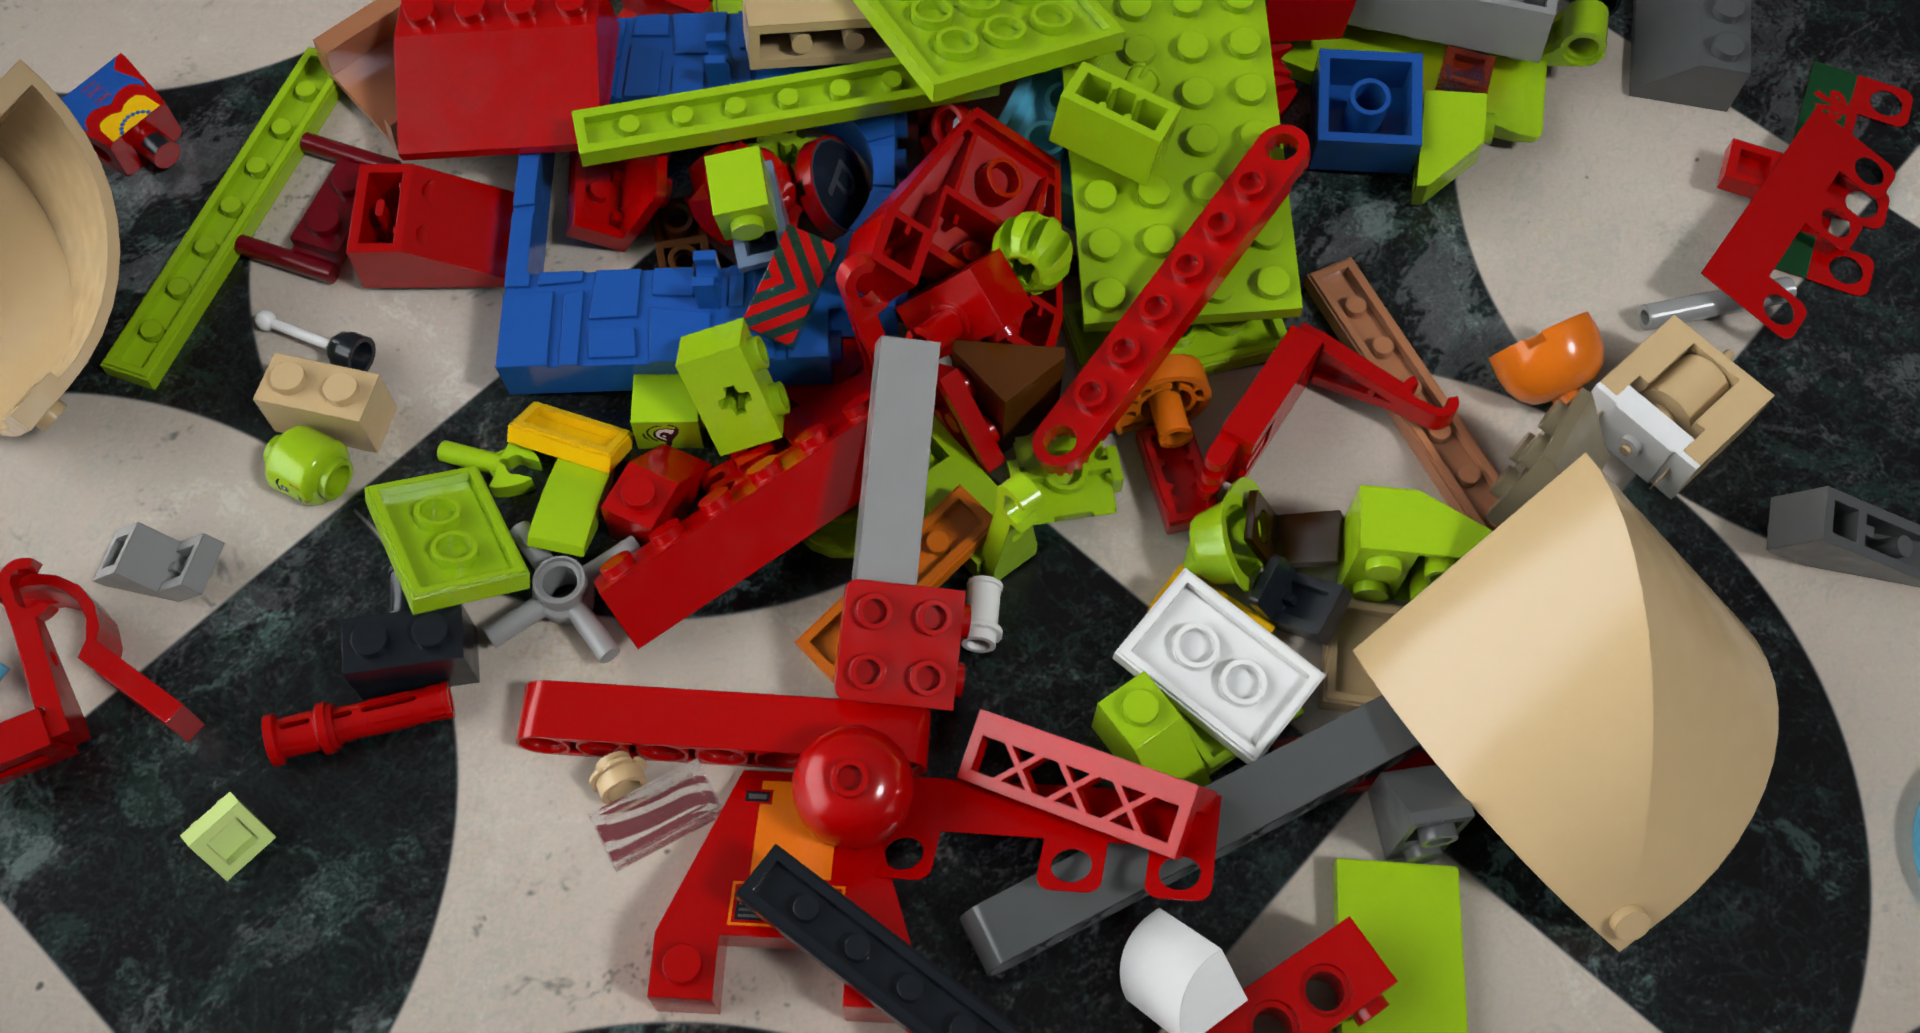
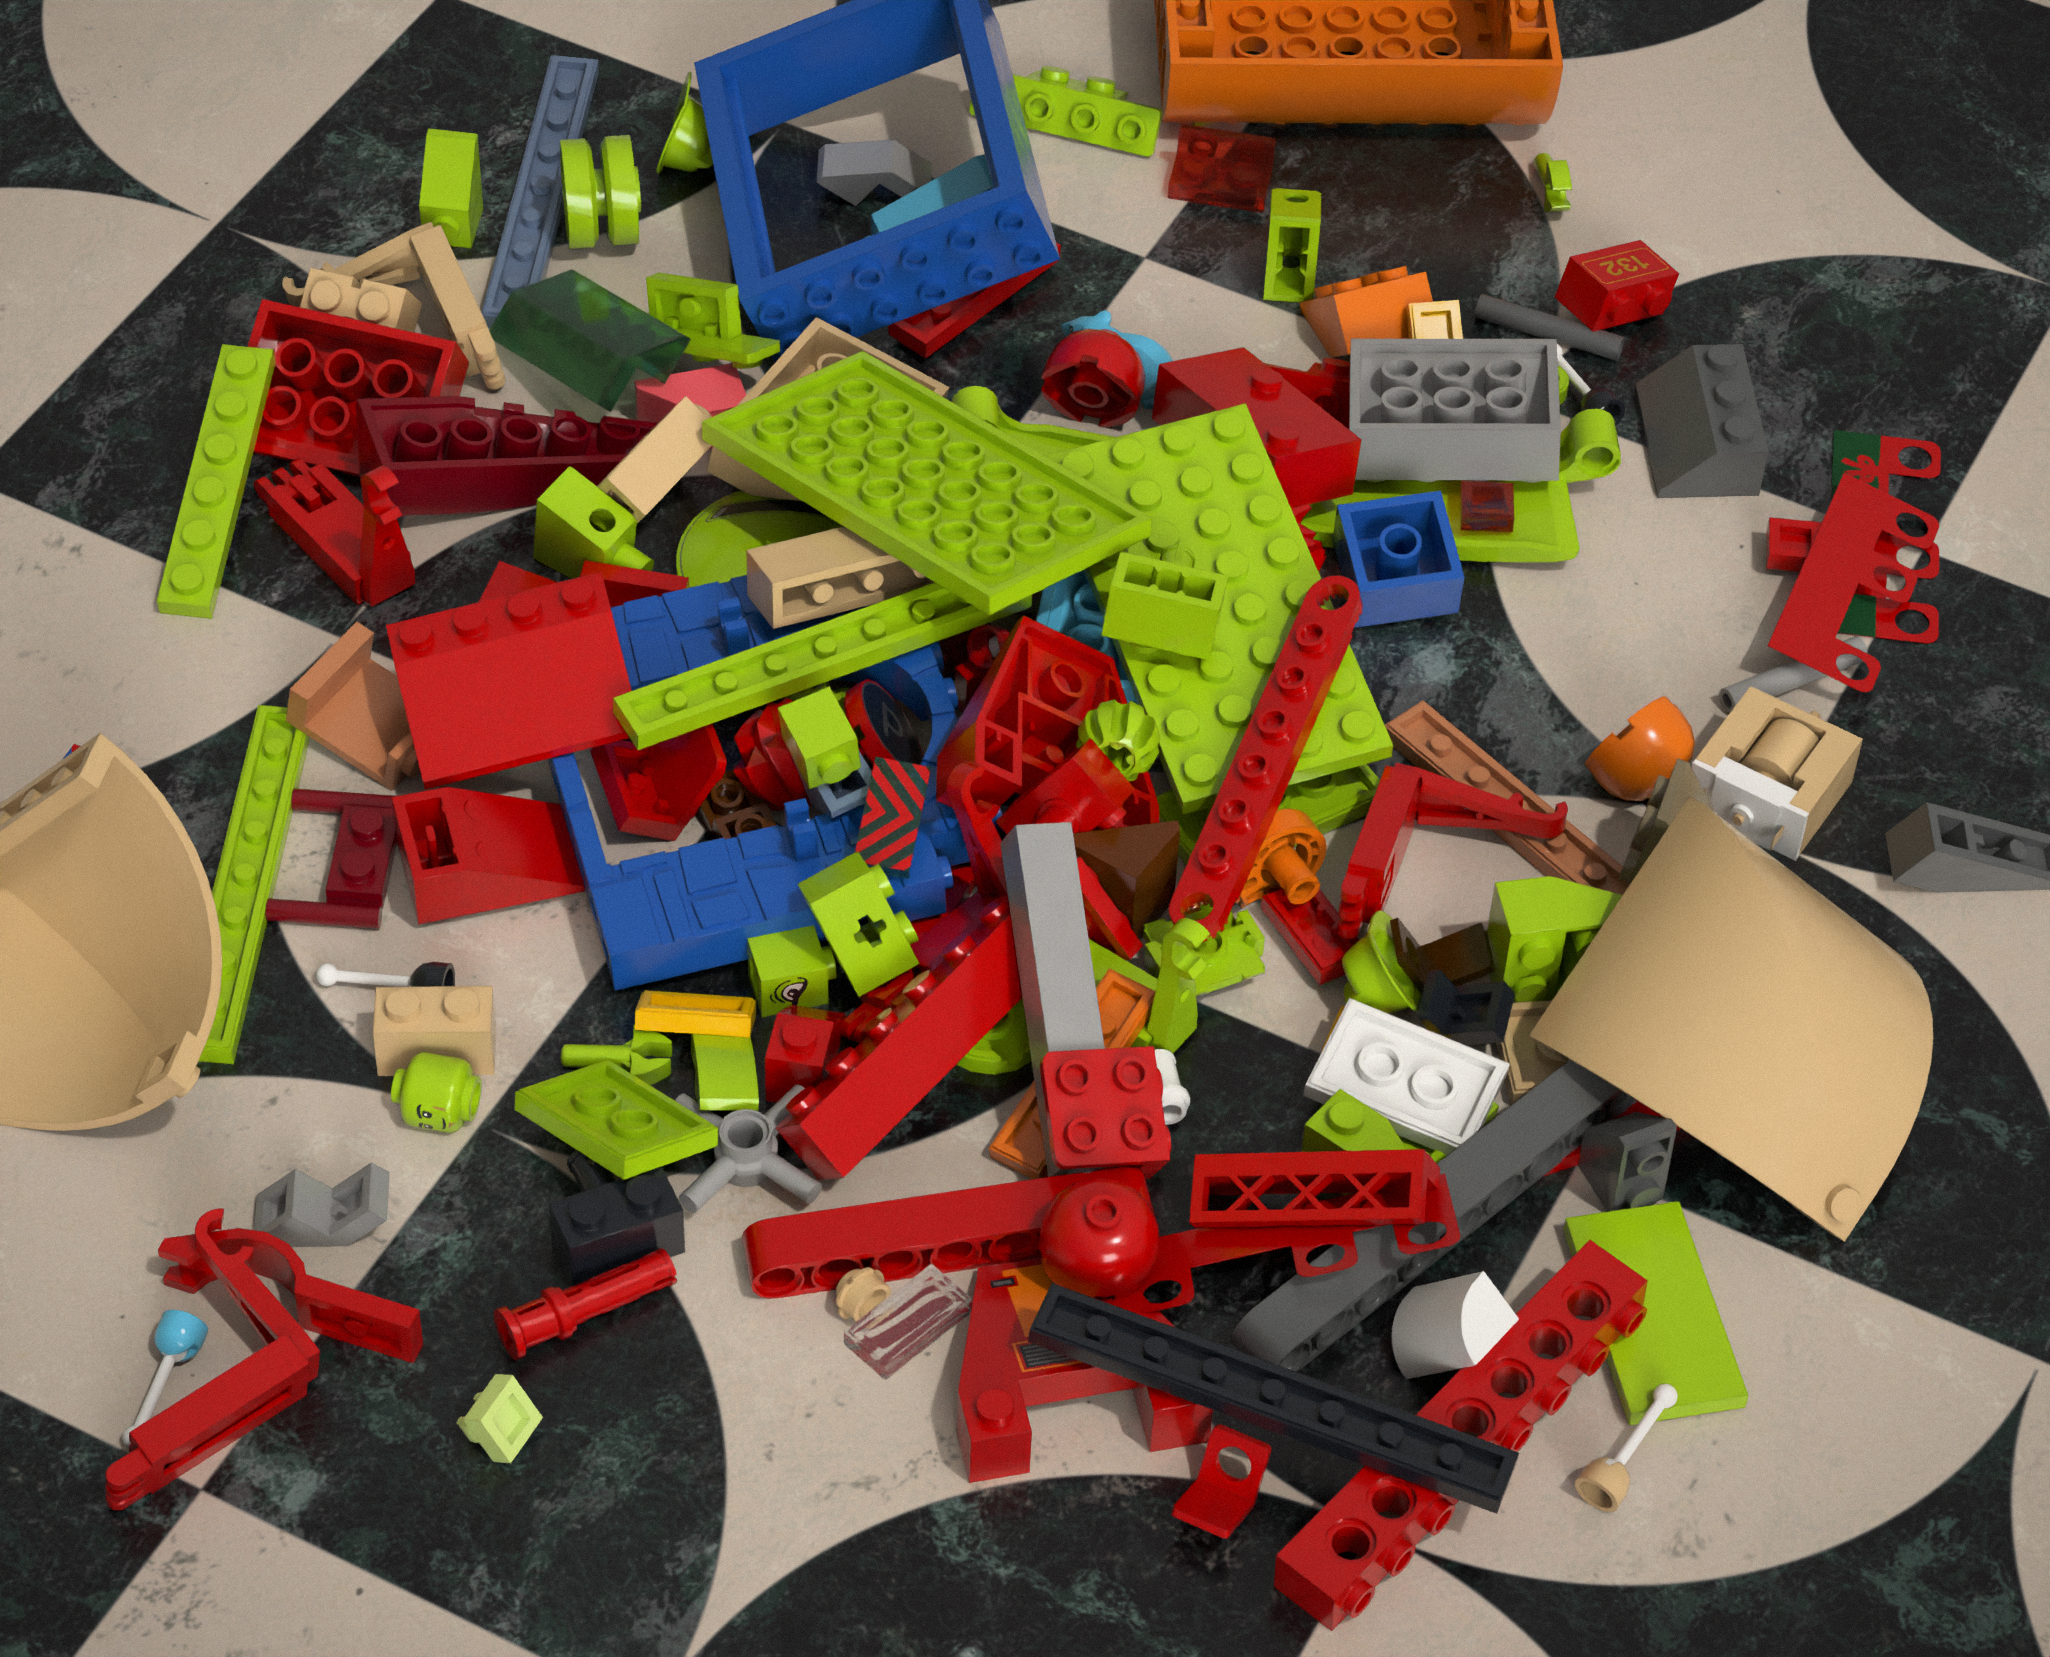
camera: 15 degrees left, 15 degrees down
(1452, 138) = (1492, 568): lime slope -> none

